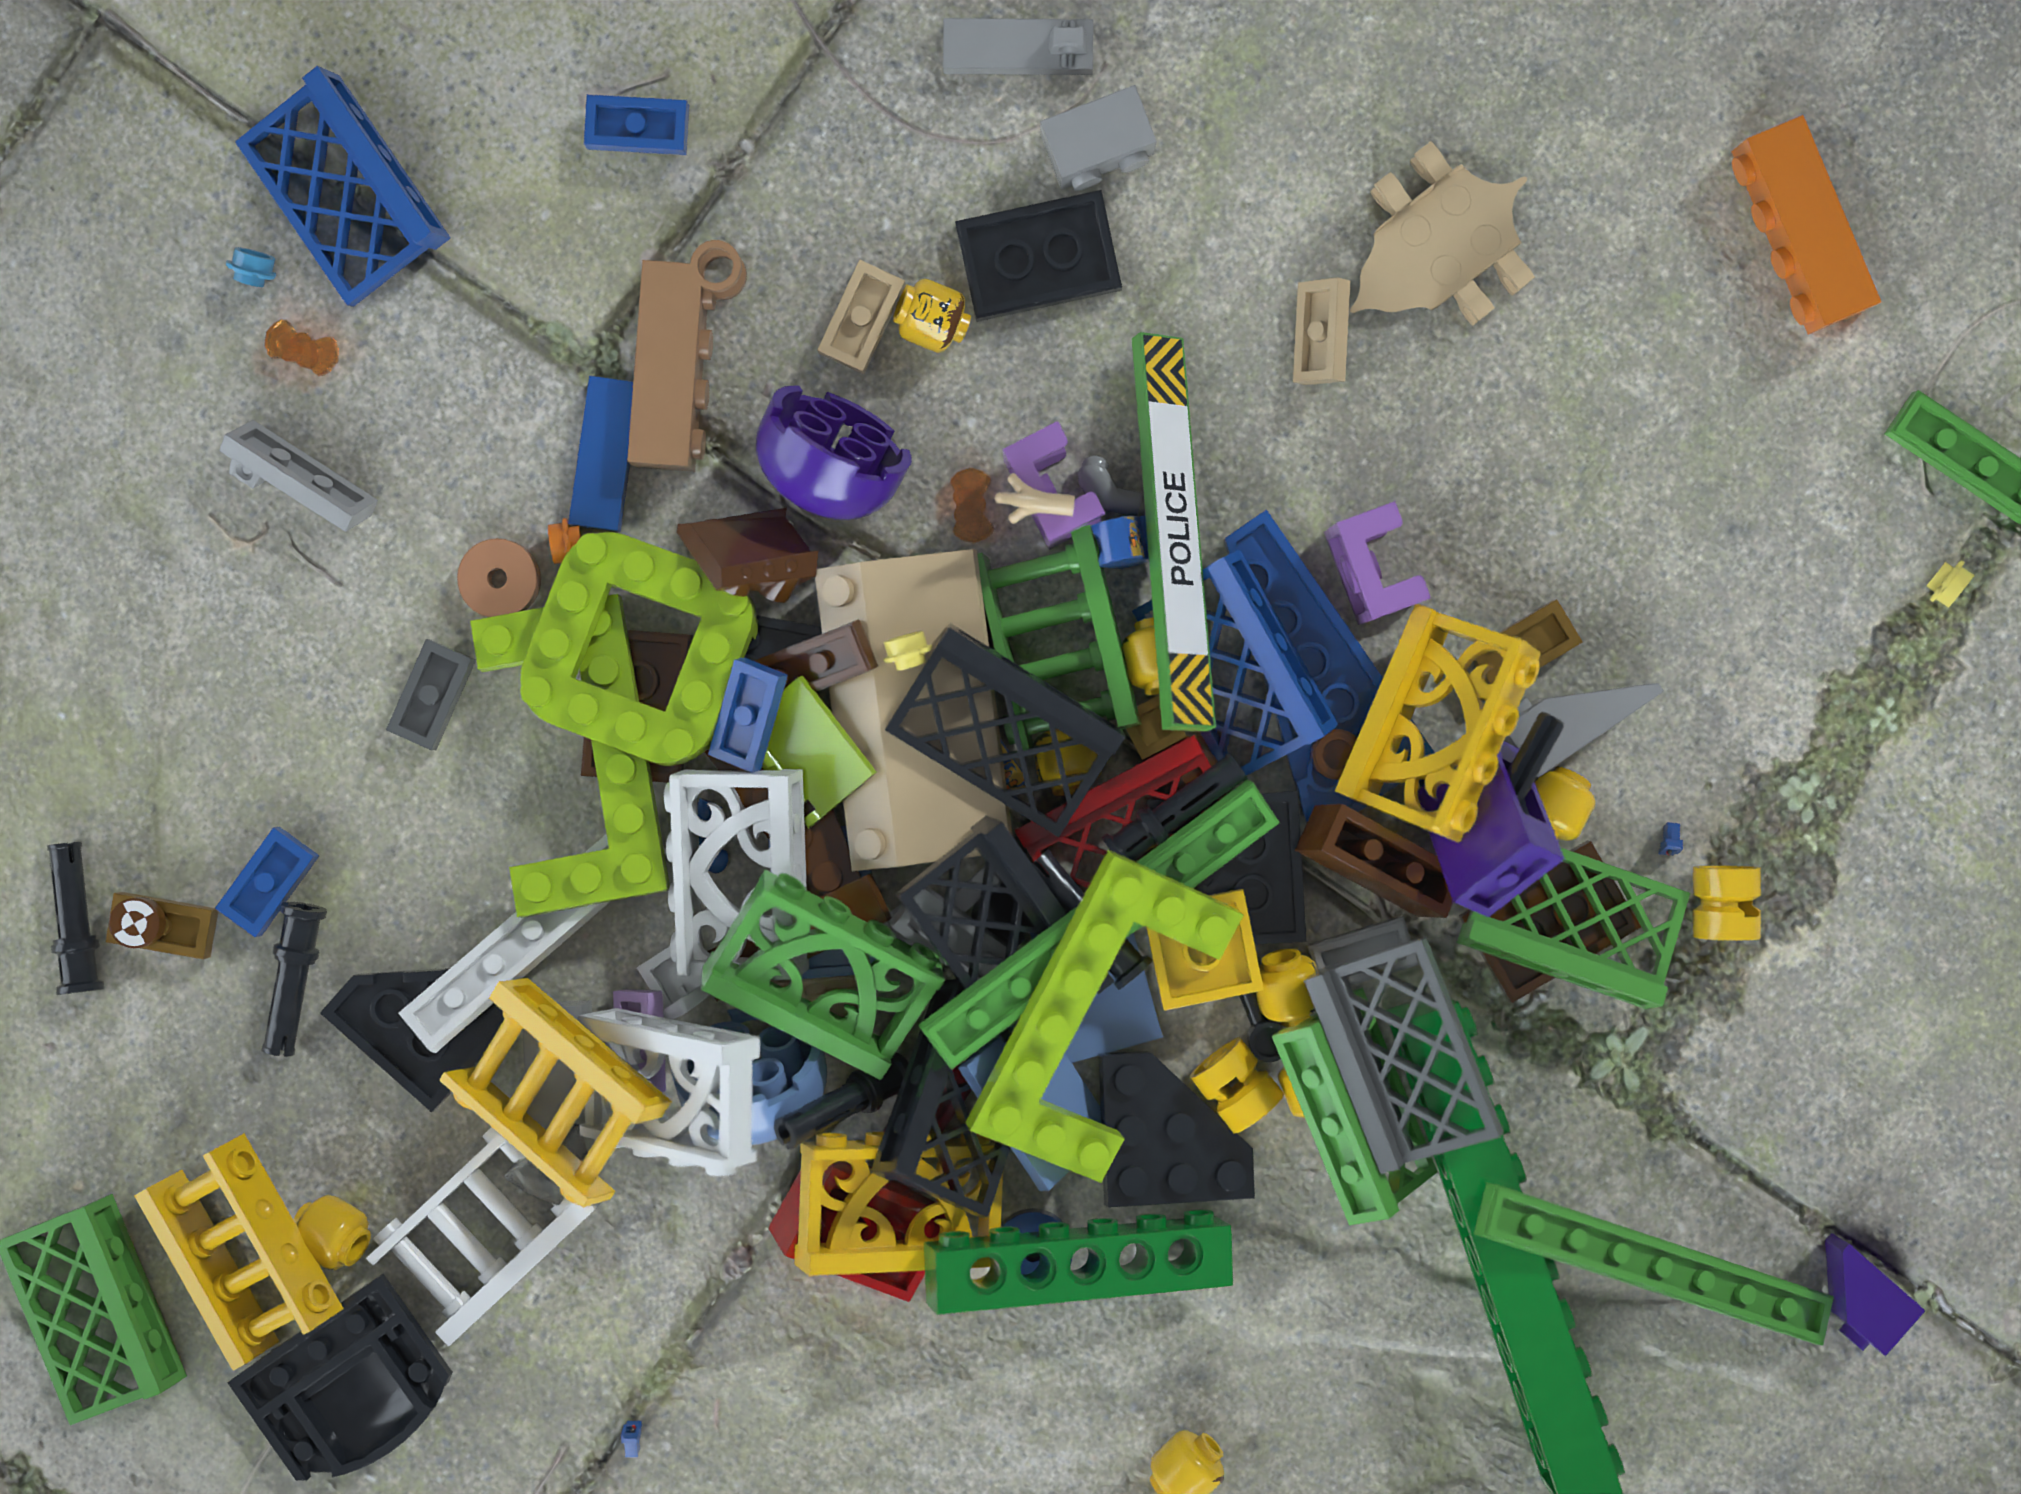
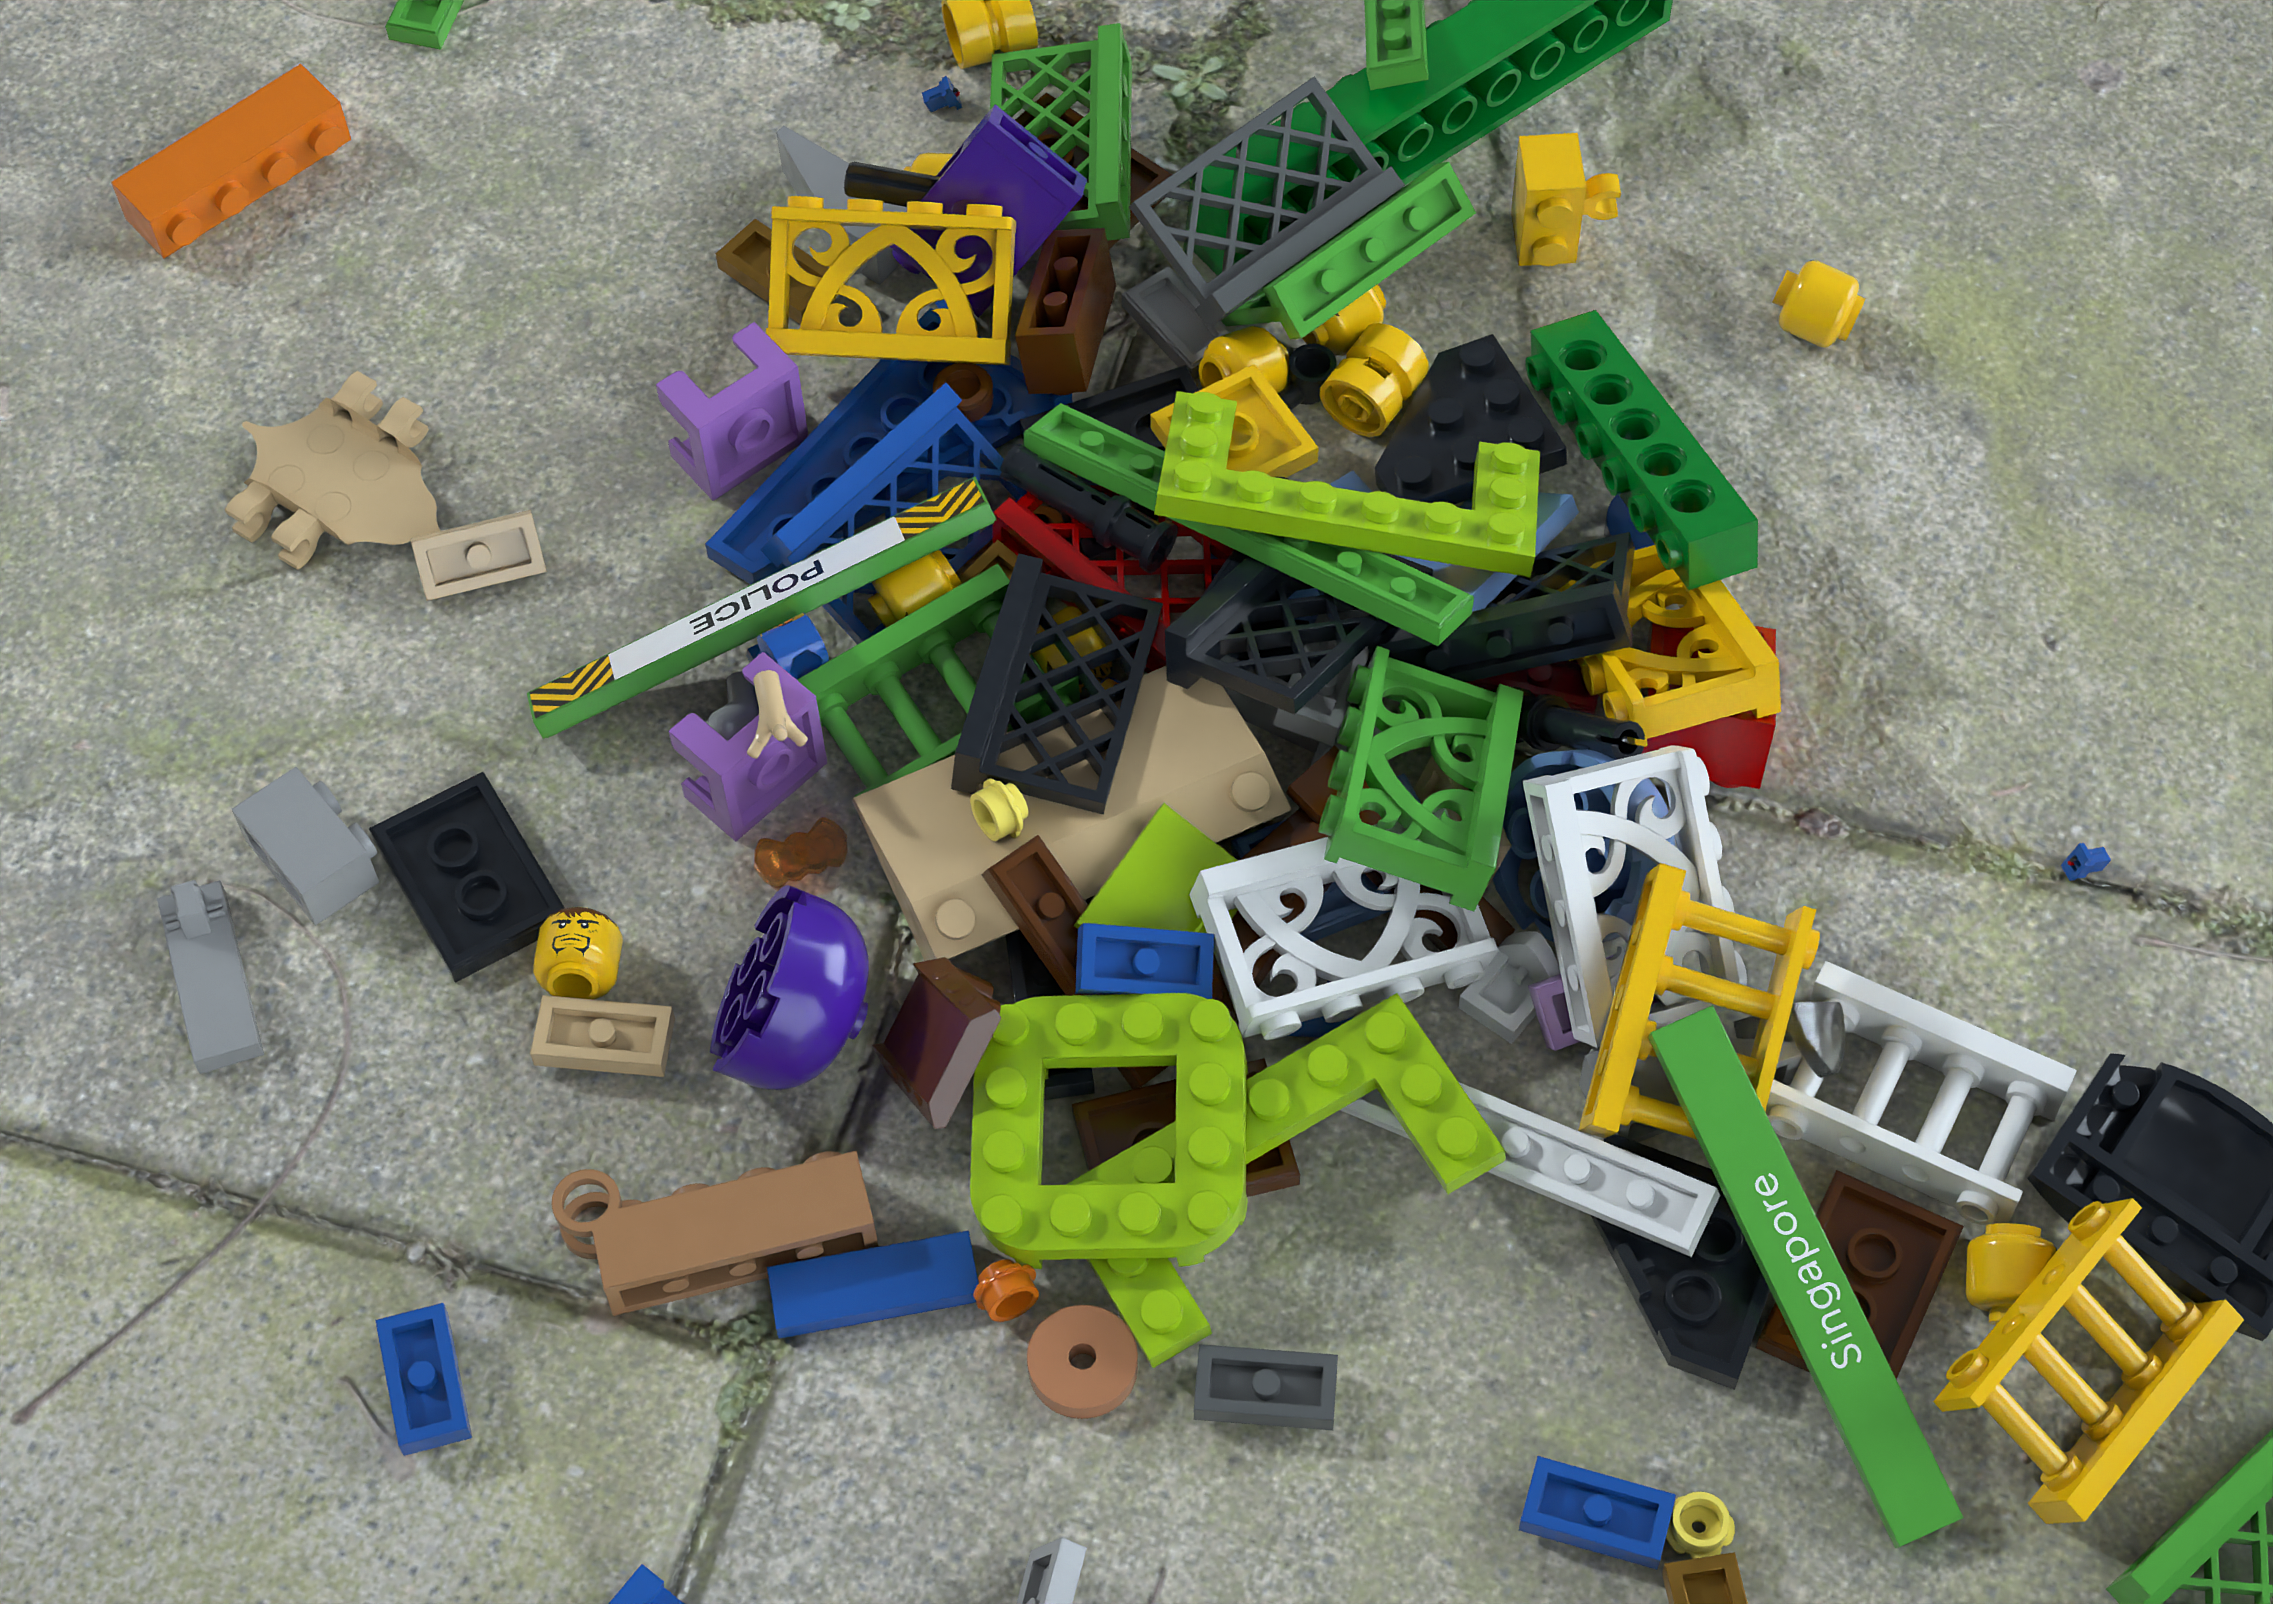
camera: 105 degrees left, 30 degrees down
(225, 948) = (1705, 1509): none -> light yellow plate
(294, 955) = (1679, 1441): black pin -> none
(362, 1084) = (1805, 1278): none -> bright green tile
(369, 1128) = (1890, 1258): none -> reddish brown tile
(1355, 1298) = (1553, 197): none -> yellow brick

